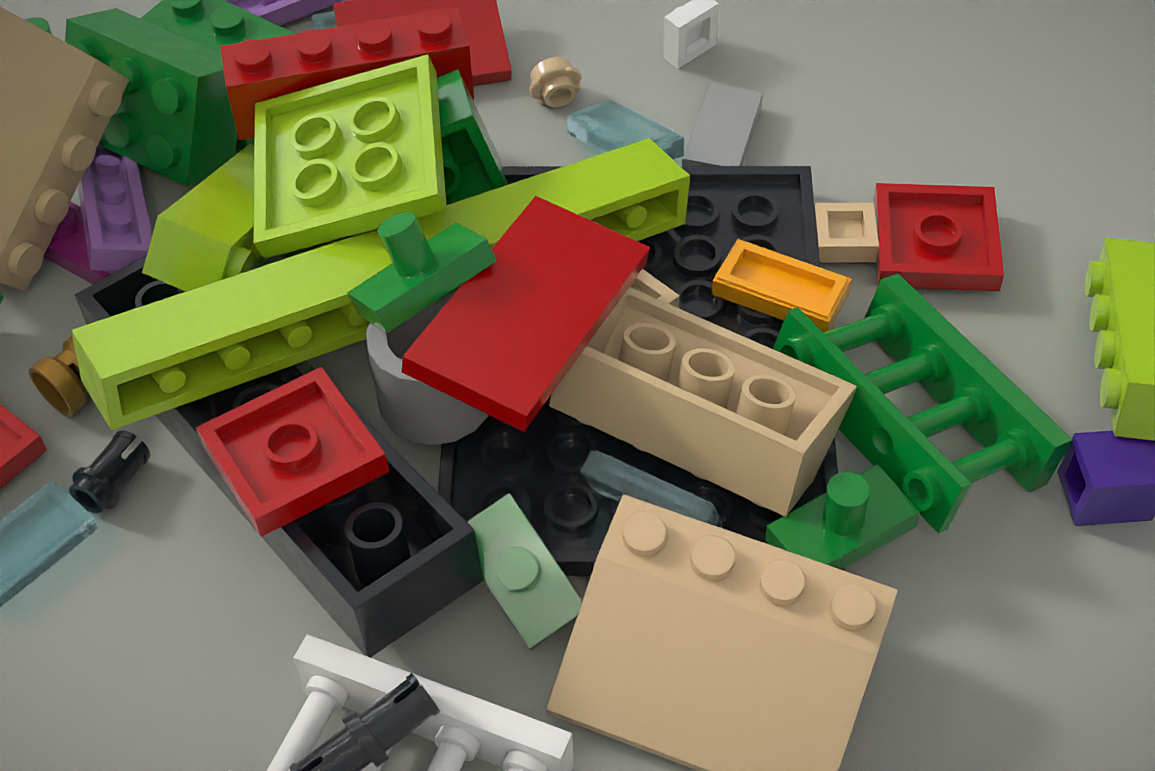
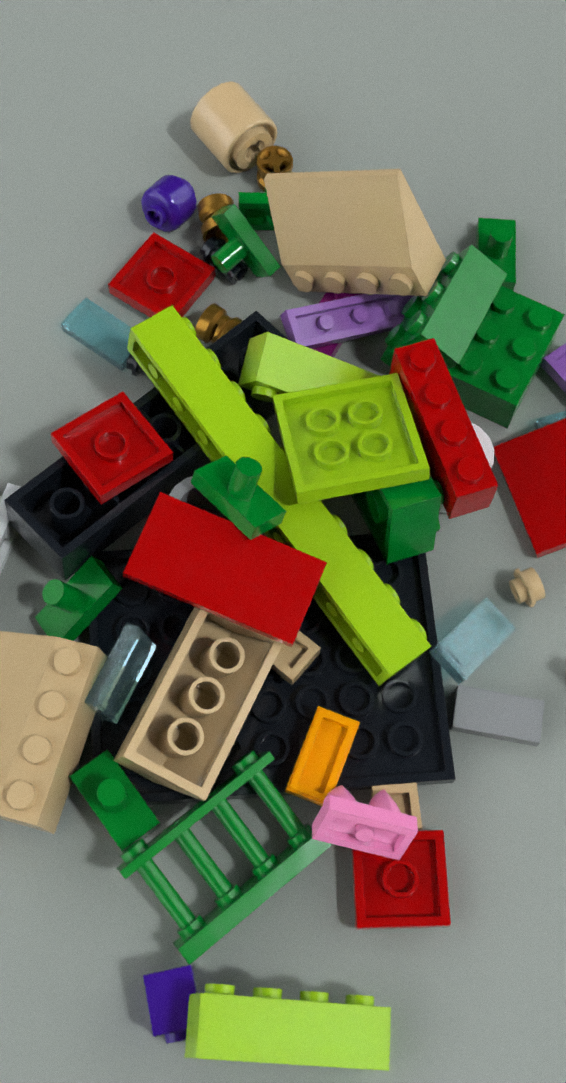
camera: 80 degrees right, 15 degrees up
(877, 233) = (364, 827): none -> bright pink tile

